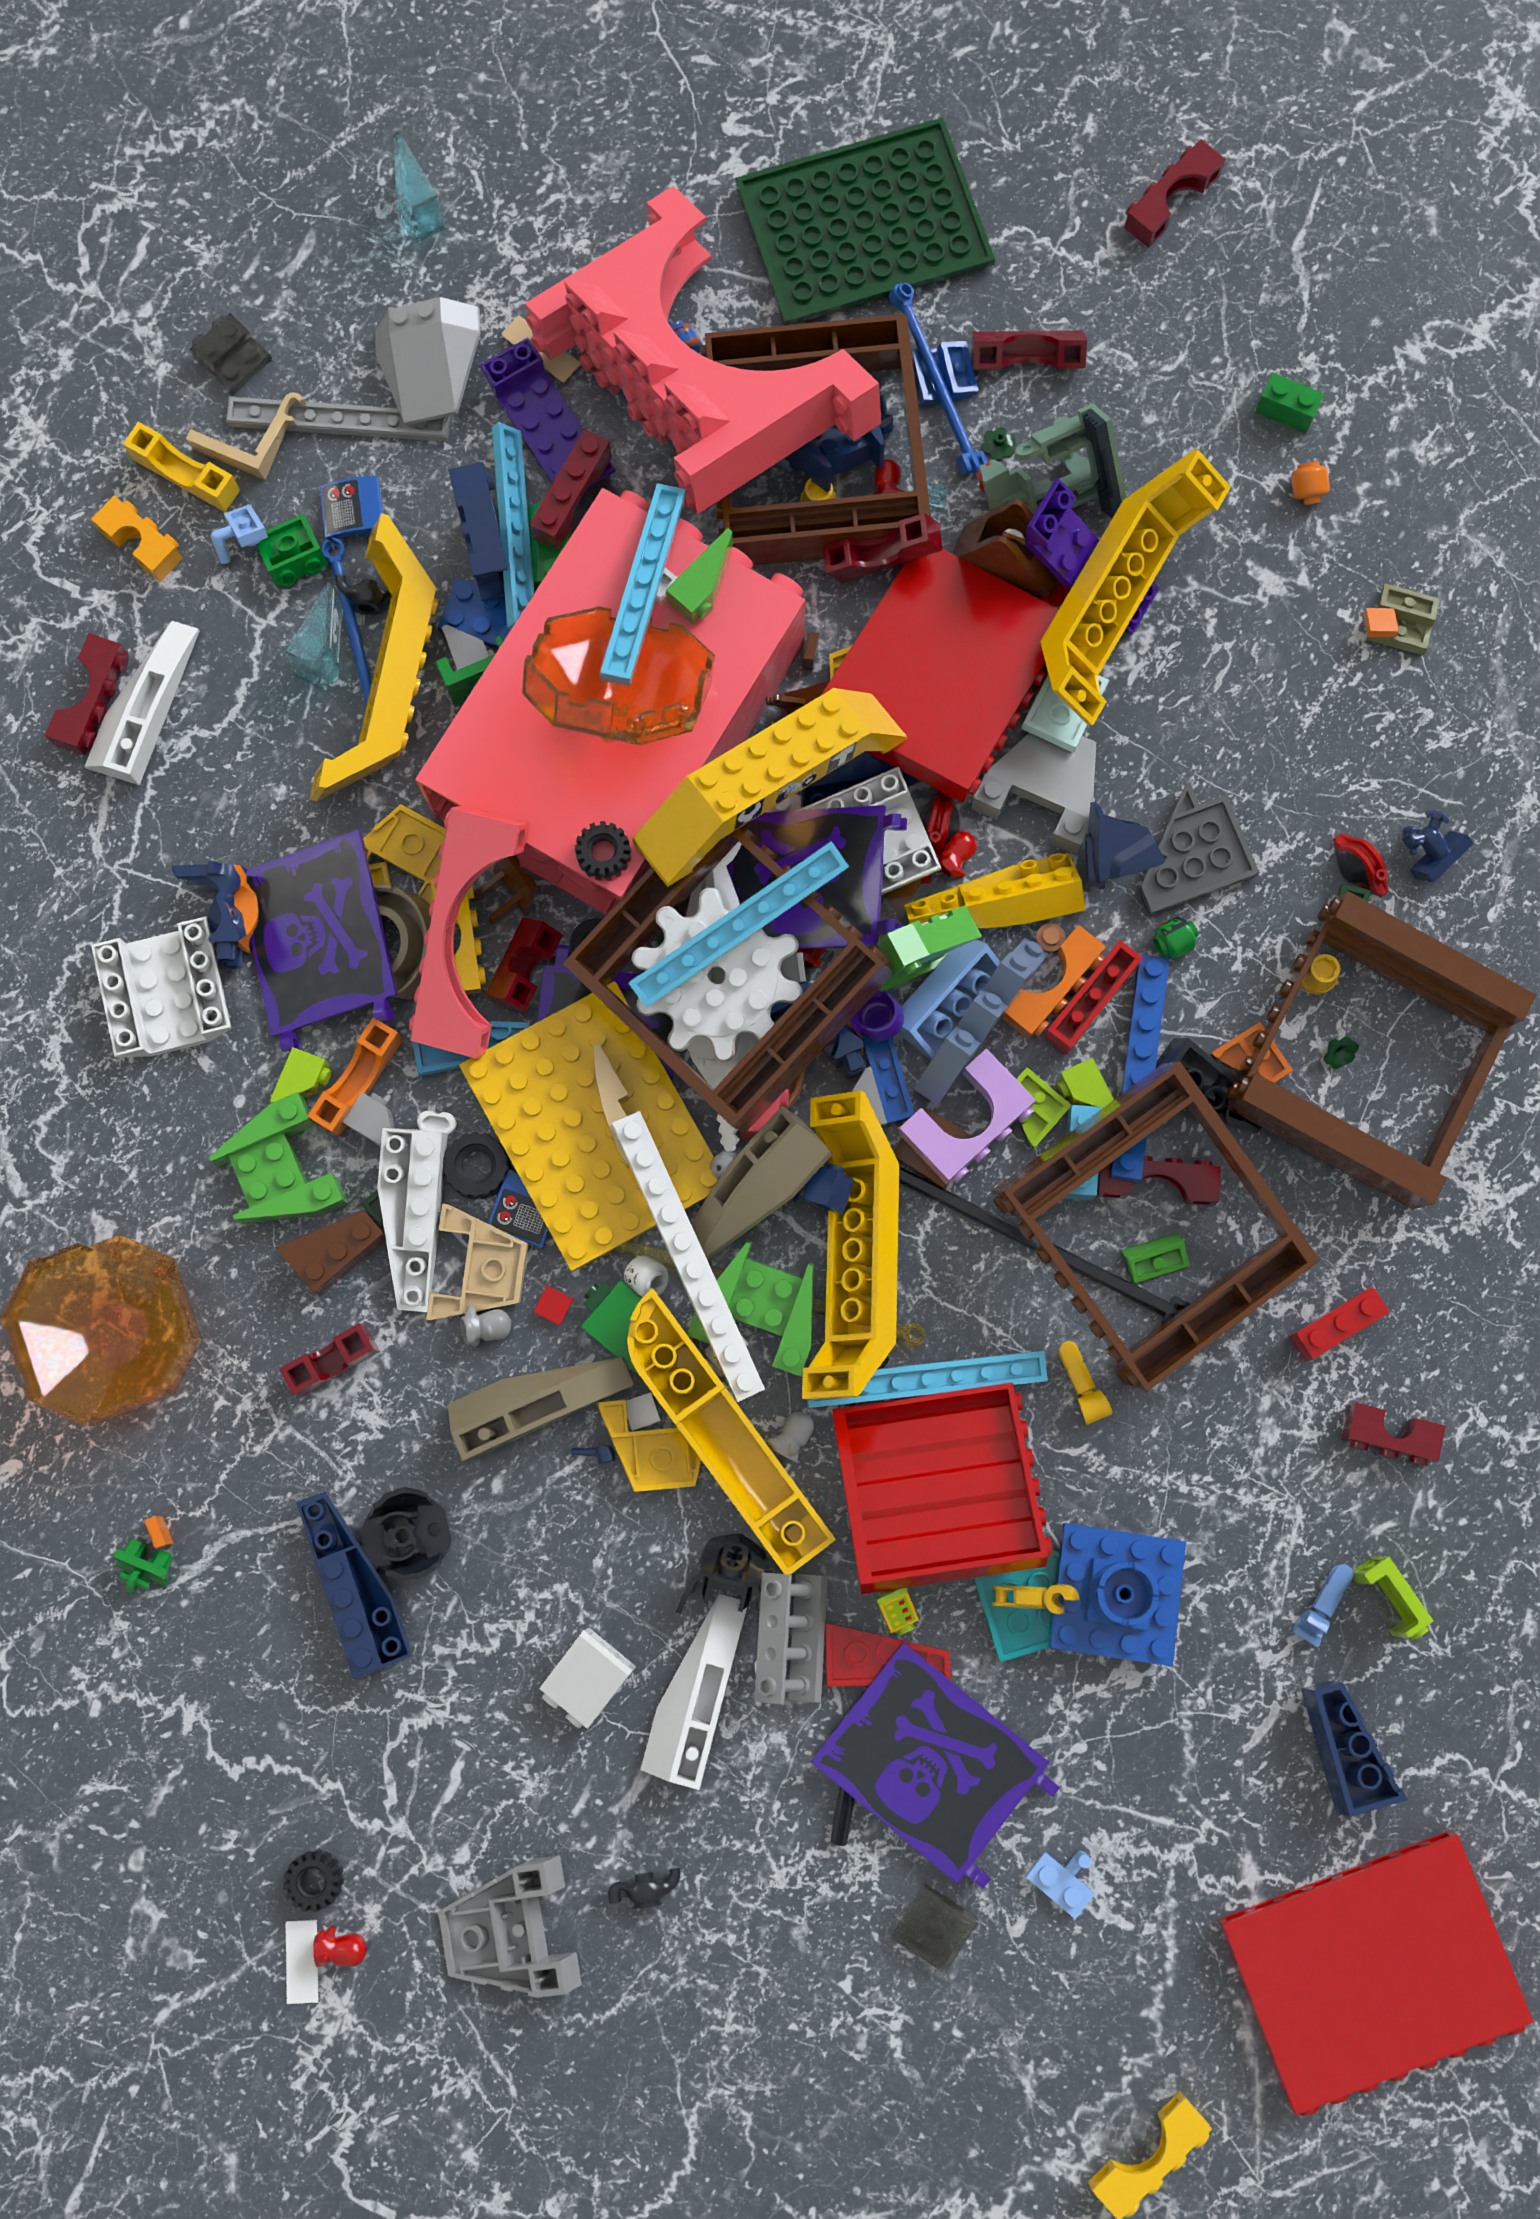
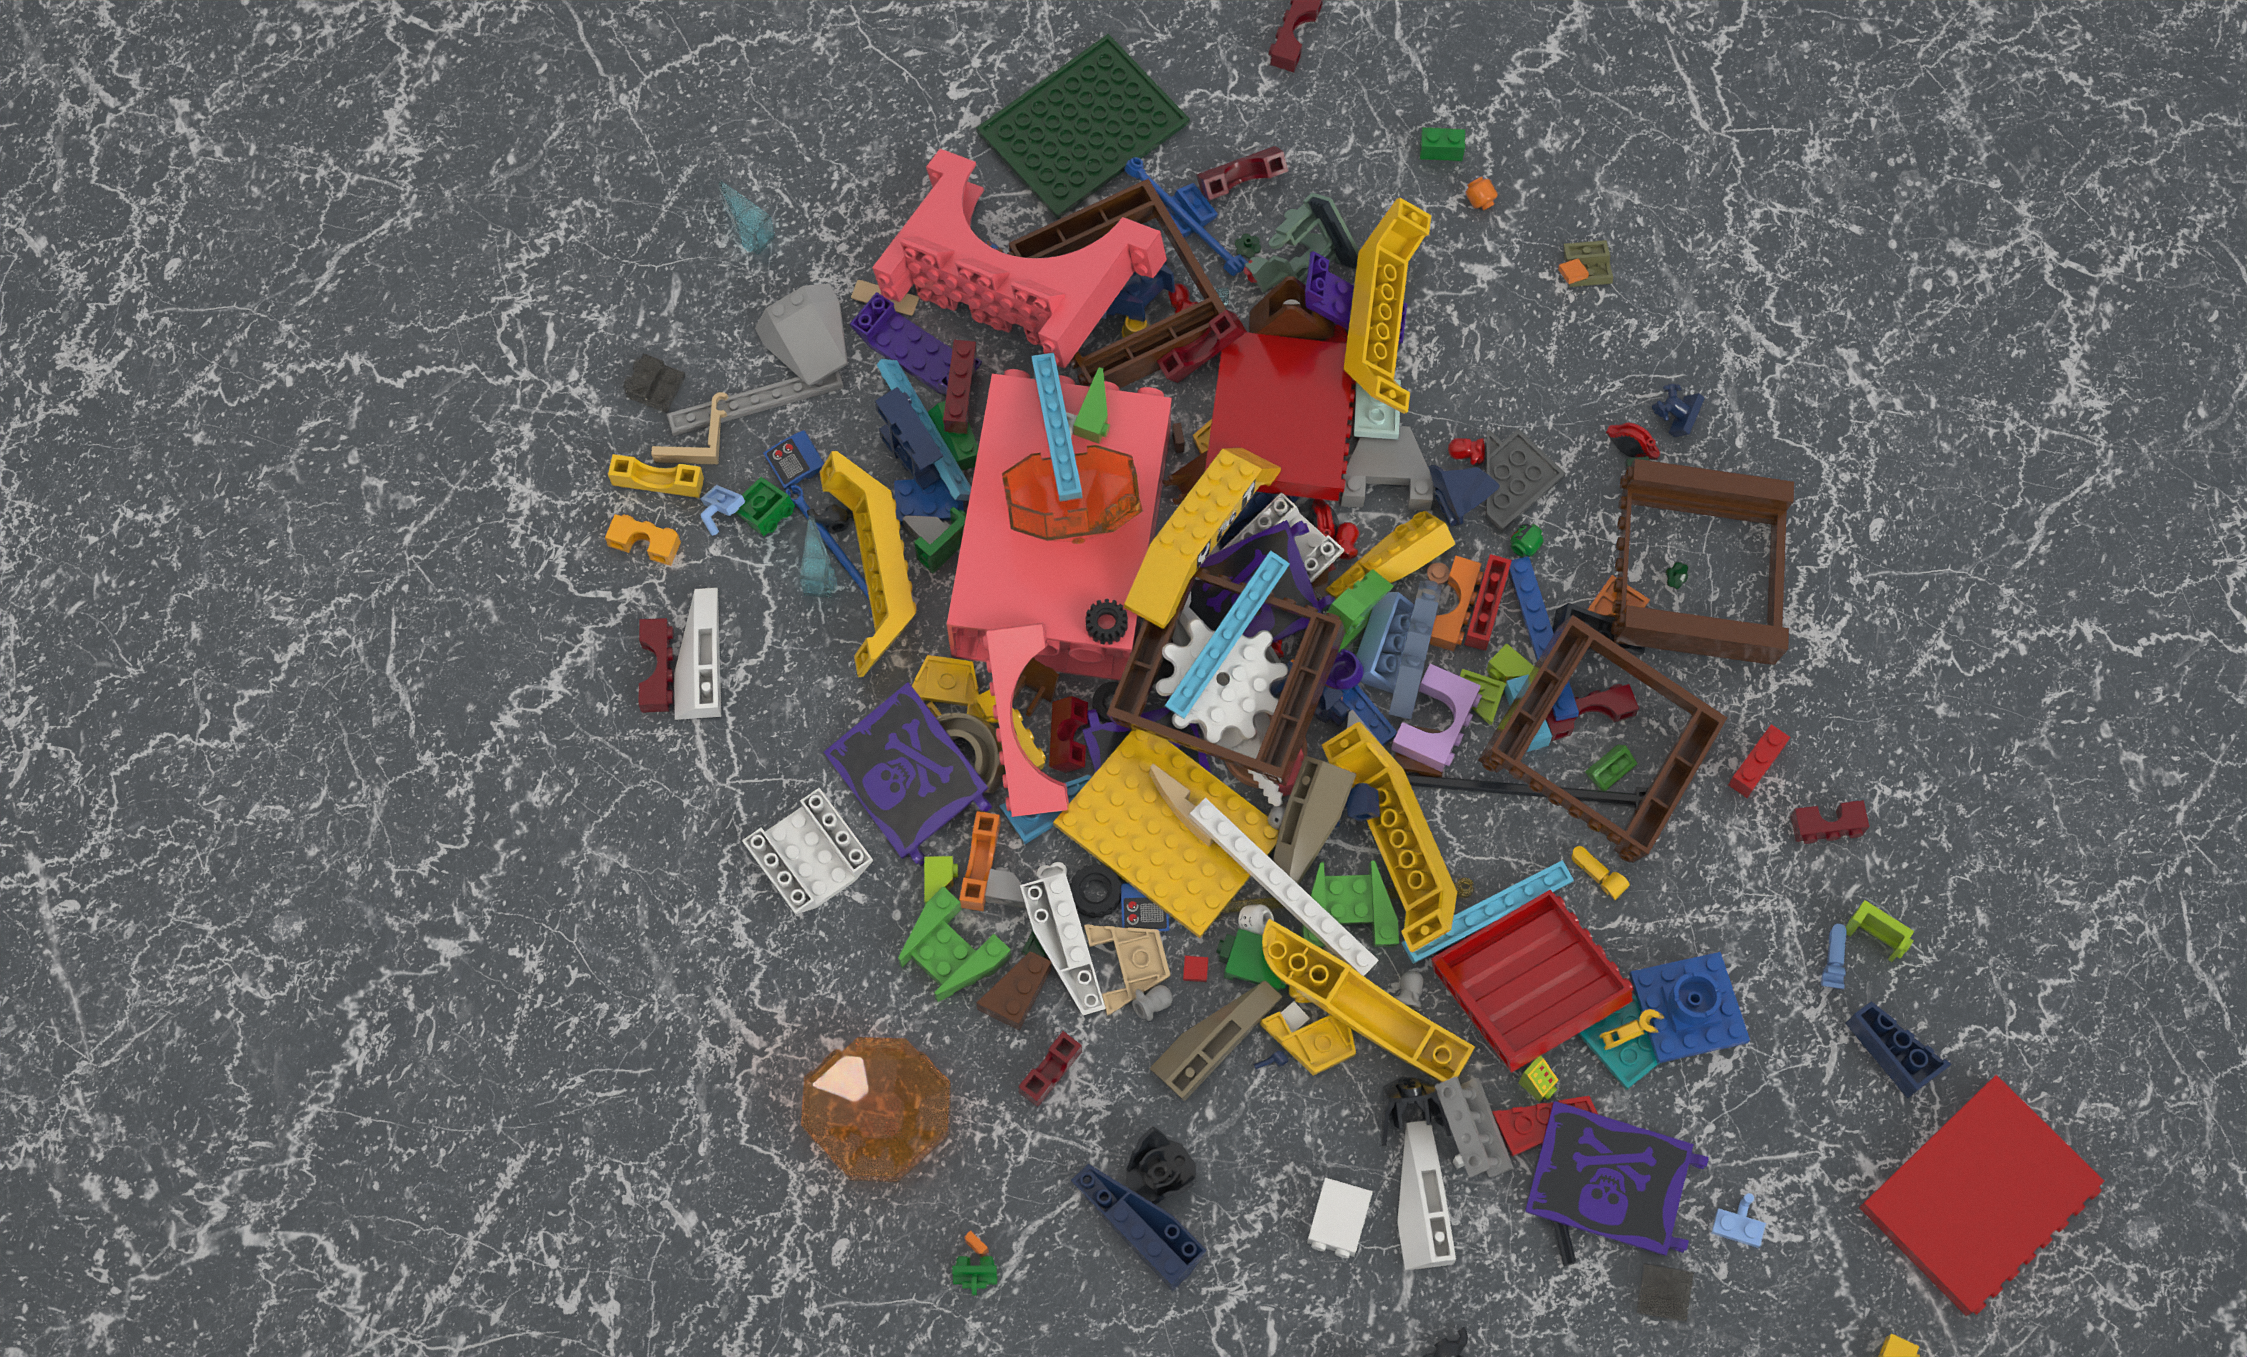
camera: 25 degrees left, 10 degrees down
(231, 913) = (837, 779): dark blue hips -> none
(1150, 795) = (1464, 448): none -> red animal
(1322, 975) = (1640, 526): yellow piece -> none

